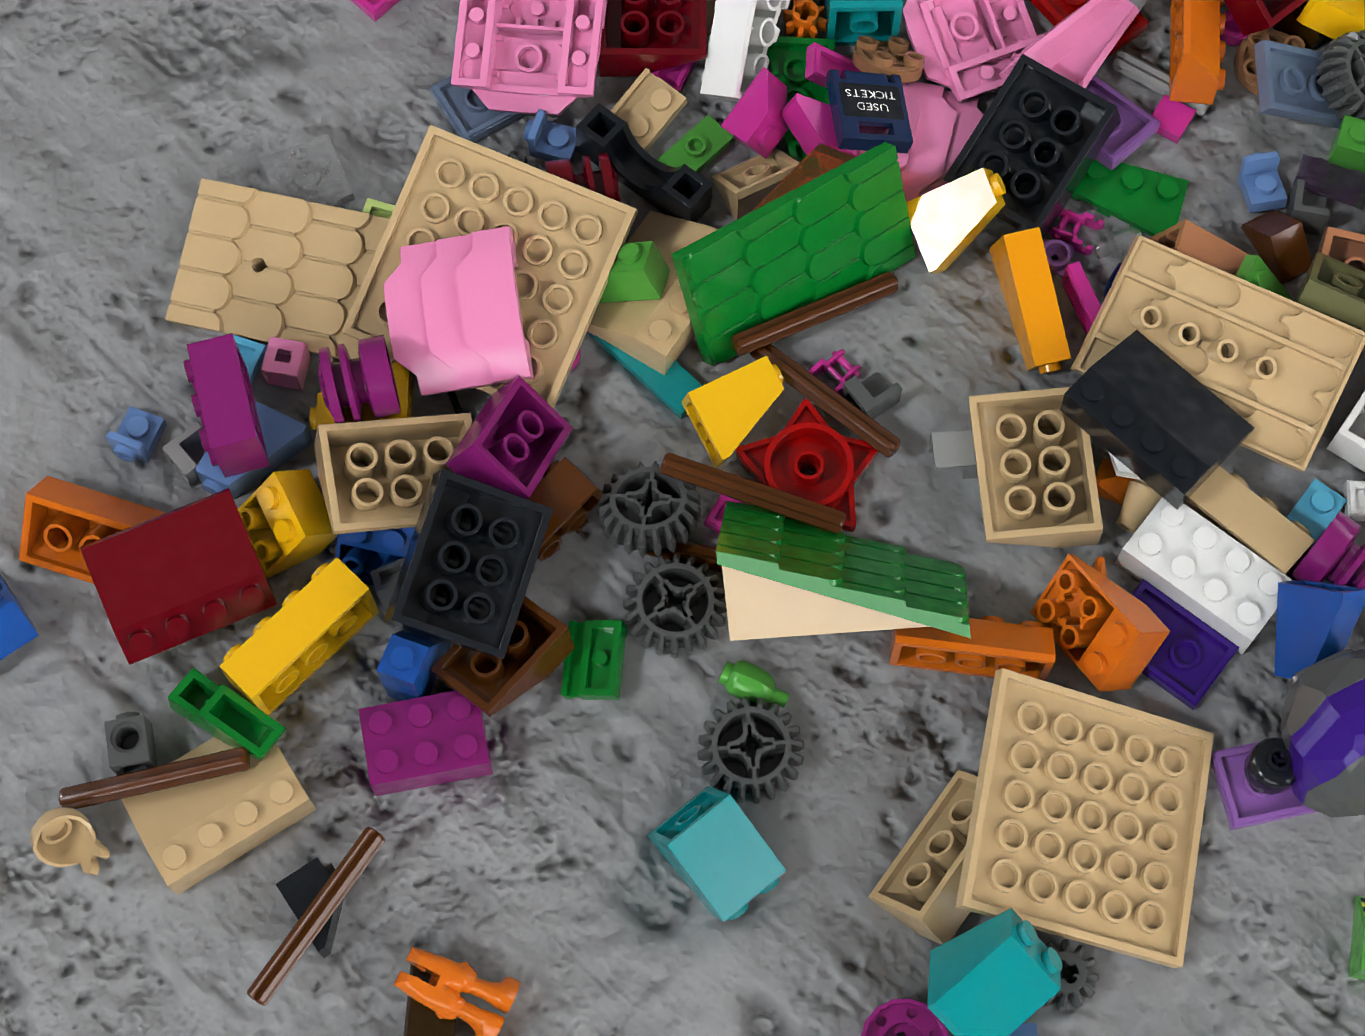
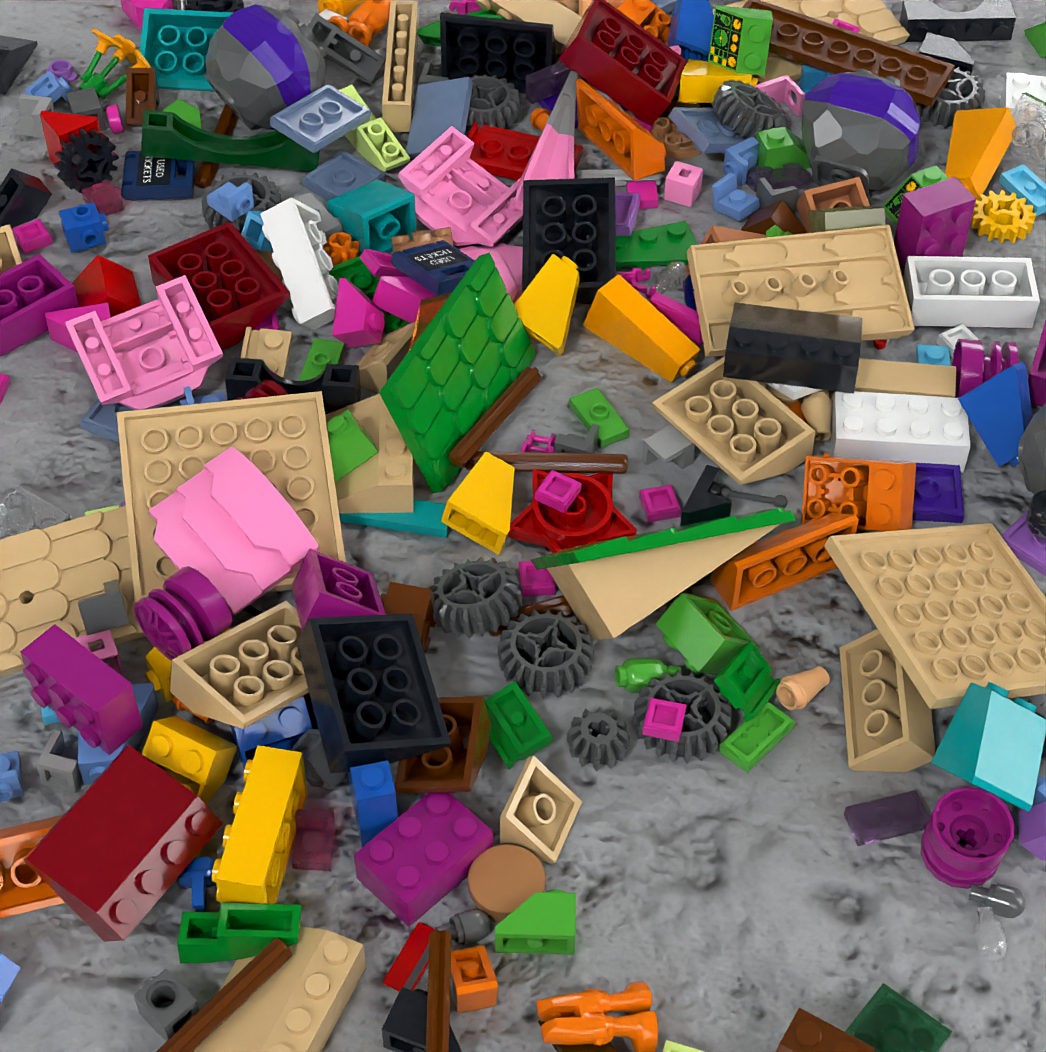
camera: 35 degrees left, 20 degrees down
(230, 636) = (198, 877): none -> blue piece
(310, 328) = (104, 610): none -> dark grey panel
(343, 835) = (411, 960): none -> red sticker
(349, 665) = (314, 839): none -> clear pink bracket
(386, 880) = (473, 979): none -> orange slope
(416, 830) = (467, 926): none -> dark grey cylinder
(479, 872) = (540, 925): none -> bright green slope
(480, 811) = (504, 879): none -> medium nougat tile
(552, 765) = (539, 812): none -> tan slope
(649, 735) = (598, 738): none -> dark grey gear
(718, 853) = (716, 796): teal slope -> none
(719, 750) = (664, 719): none -> dark pink tile
(753, 493) = (547, 539): reddish brown axle -> none
(802, 443) = (558, 491): none -> dark pink tile
(804, 813) = (757, 737): none -> bright green plate
(830, 756) = (747, 681): none -> green plate
(838, 680) = (702, 633): none -> bright green slope
(862, 969) = (886, 818): none -> clear purple plate
(883, 790) = (800, 688): none -> light nougat cone
(907, 505) = (659, 503): none -> dark pink tile
(921, 371) = (594, 408): none -> bright green plate
(938, 539) = (705, 501): none -> black slope
(1027, 574) = (778, 501): none -> dark grey hinge
(1221, 132) = (683, 184): none -> bright pink piece
(1309, 133) = (741, 158): none -> medium blue bracket

